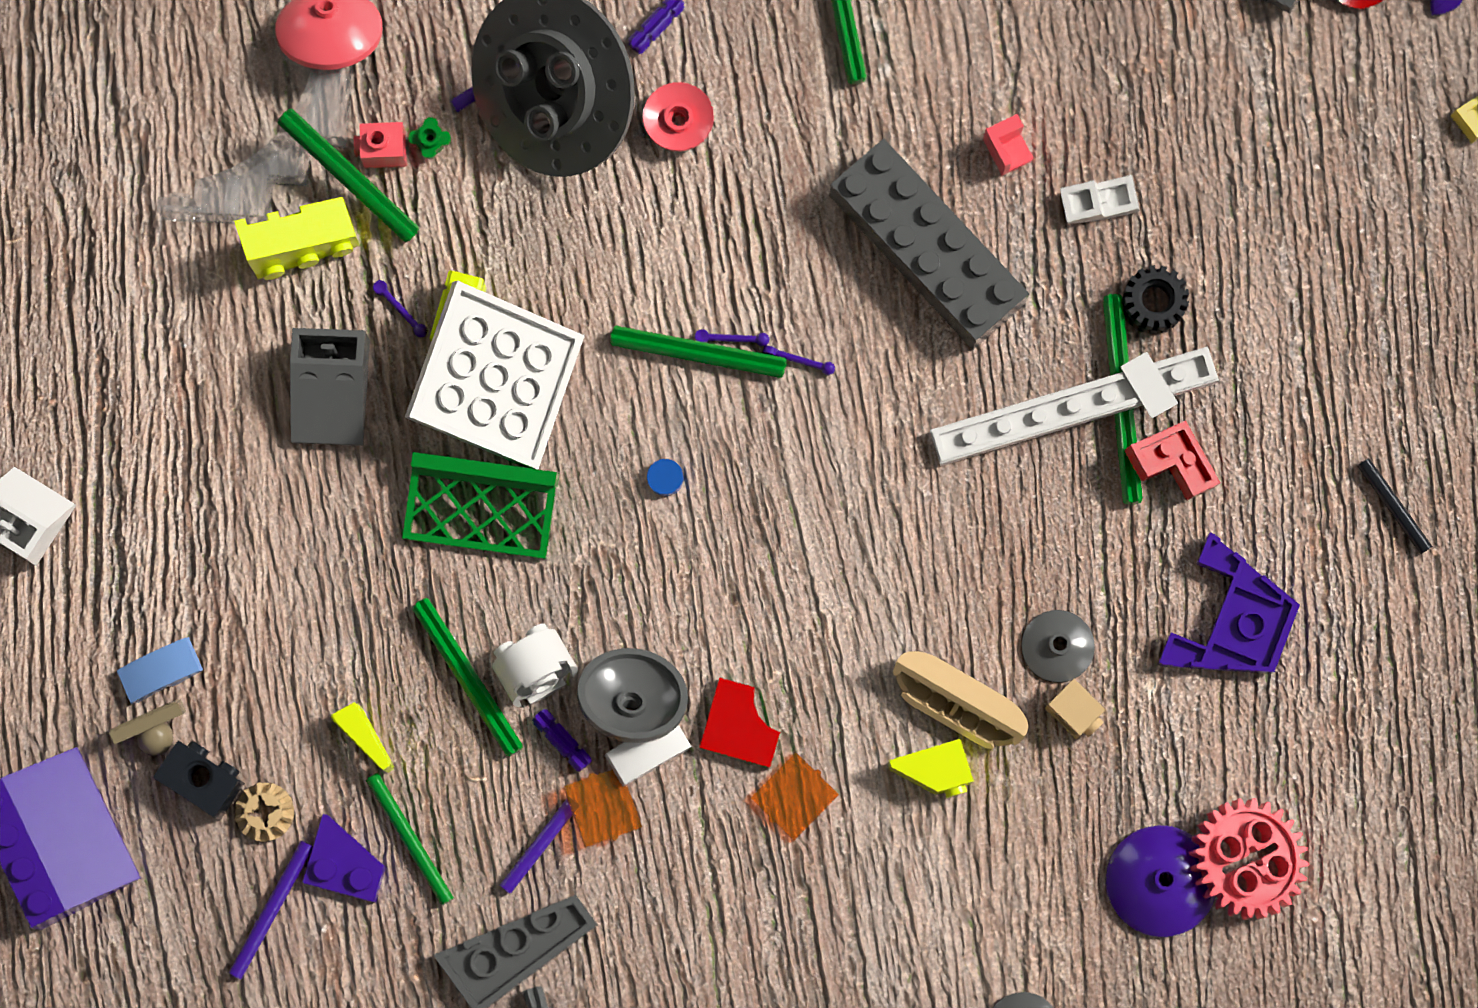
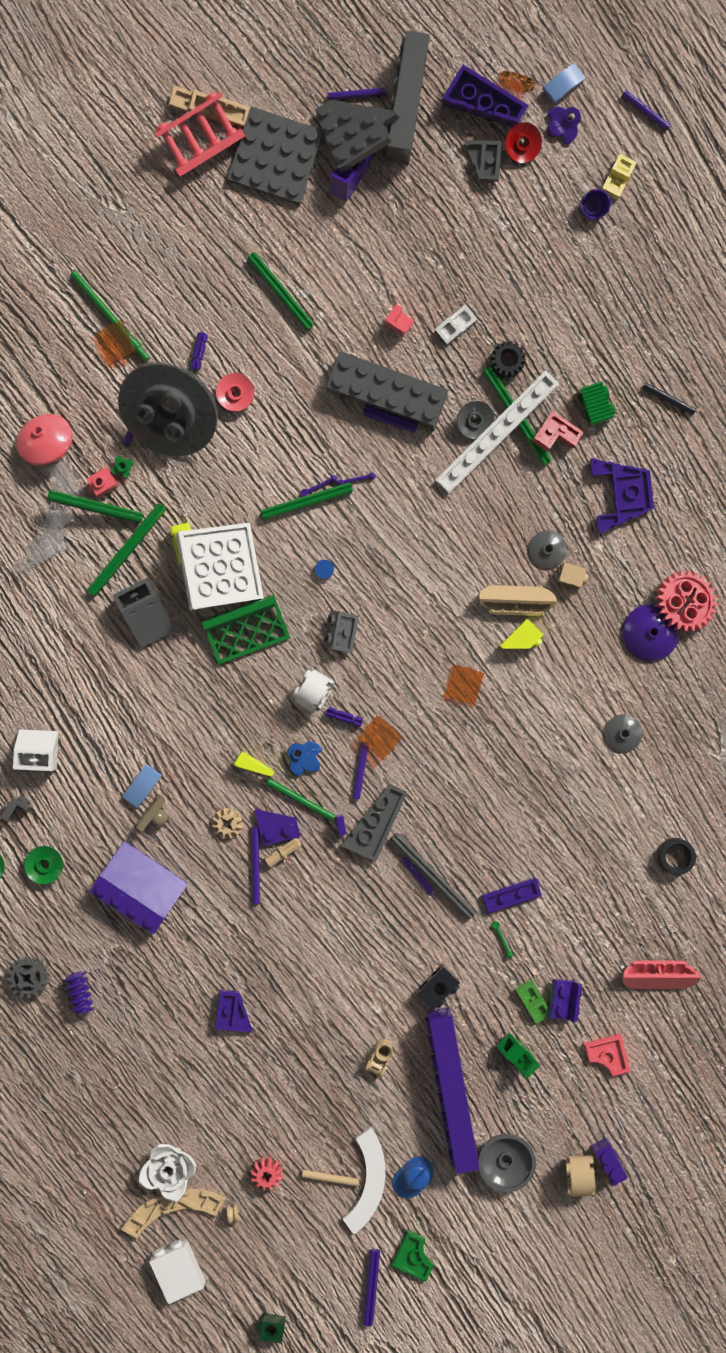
camera: 30 degrees left, 10 degrees up
(178, 772) = (178, 829): black brick -> none
(298, 238) = (89, 549): neon yellow wedge -> none
(329, 912) = (282, 852): none -> tan axle
(359, 272) = (126, 549): none -> green axle
(381, 288) = (140, 551): dark purple hinge -> none
(453, 919) = (341, 824): none -> dark purple tile
(458, 776) = (306, 759): none -> blue plate
(467, 677) = (284, 711): green axle -> none
(633, 681) = (364, 671): dark grey dish -> none
(635, 593) = (341, 631): none -> dark grey bracket
(638, 759) = (386, 700): white slope -> none
(736, 728) = (420, 667): red tile -> none
(908, 292) = (390, 419): none -> dark purple axle
(1067, 368) = (484, 418): none -> dark grey dish
(1149, 385) = (527, 403): white sticker -> none
(1266, 448) = (596, 404): none -> green brick
(1429, 129) = (595, 204): none -> dark purple hair

